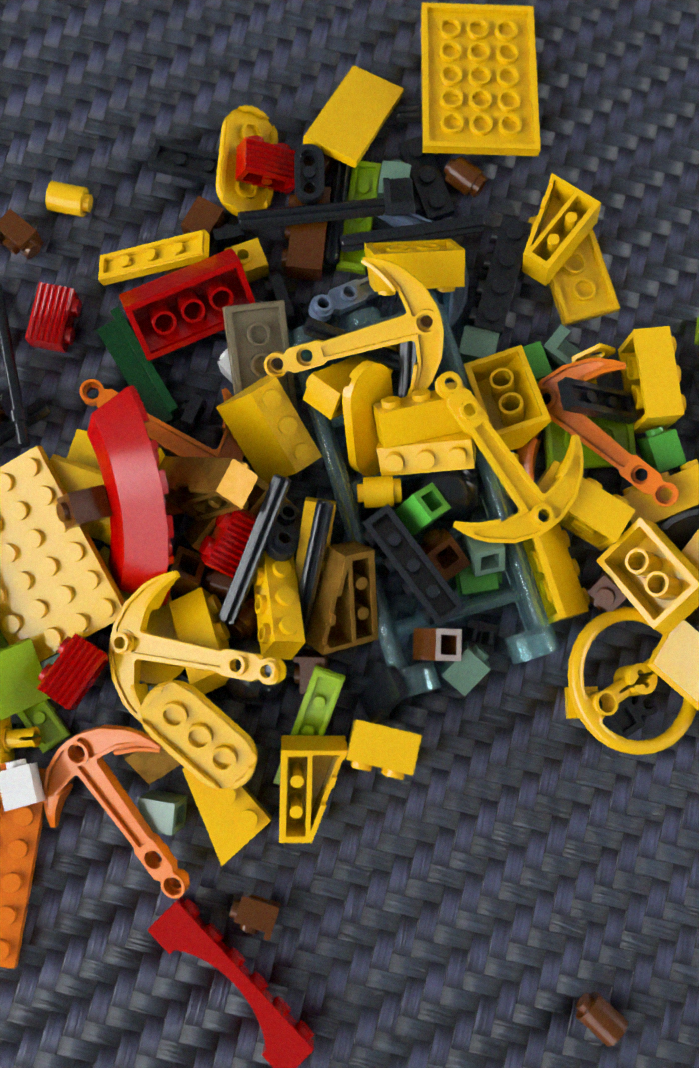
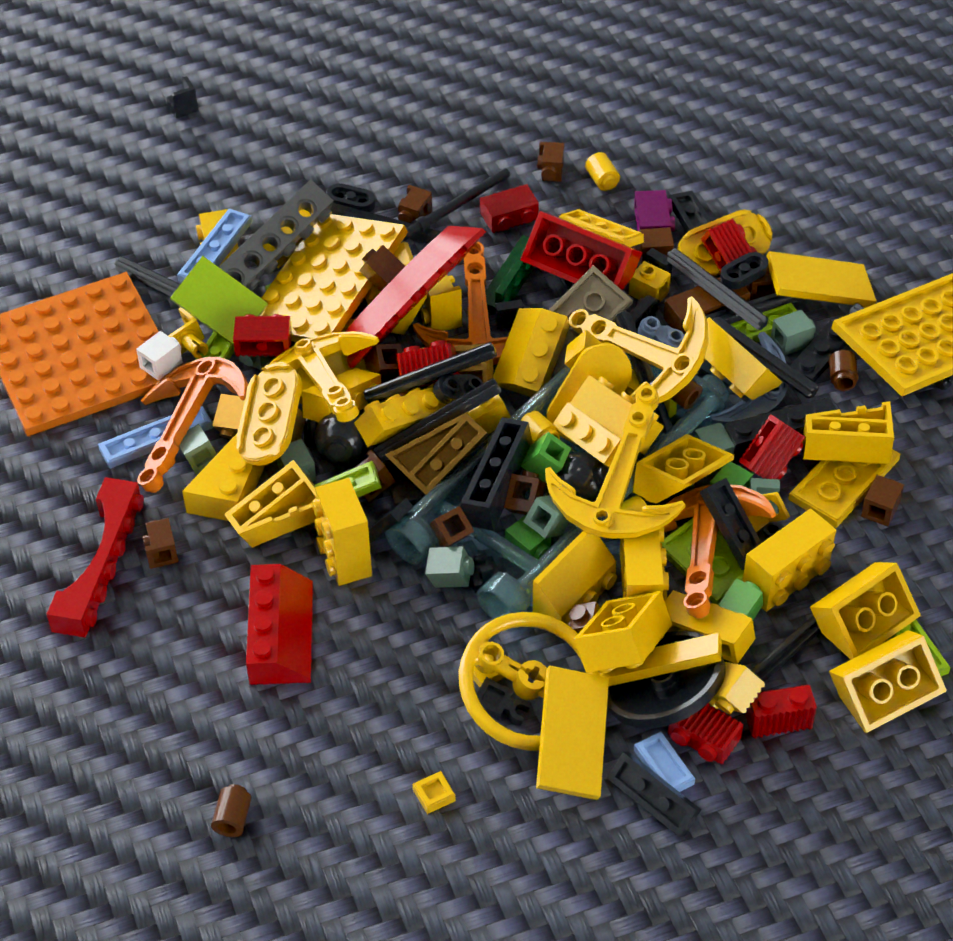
camera: 65 degrees right, 30 degrees down
(107, 855) = (142, 440): none -> light blue tile
(161, 195) = (653, 210): none -> magenta brick
(207, 485) = (454, 321): pearl gold wedge -> none
(253, 725) = (298, 452): none -> sand green brick
(398, 196) = (777, 327): black panel -> none
(427, 858) = (279, 626): none -> red slope
(528, 306) = (772, 449): none -> red brick
(625, 255) = (882, 500): none -> reddish brown brick
(678, 827) = (434, 792): none -> yellow tile

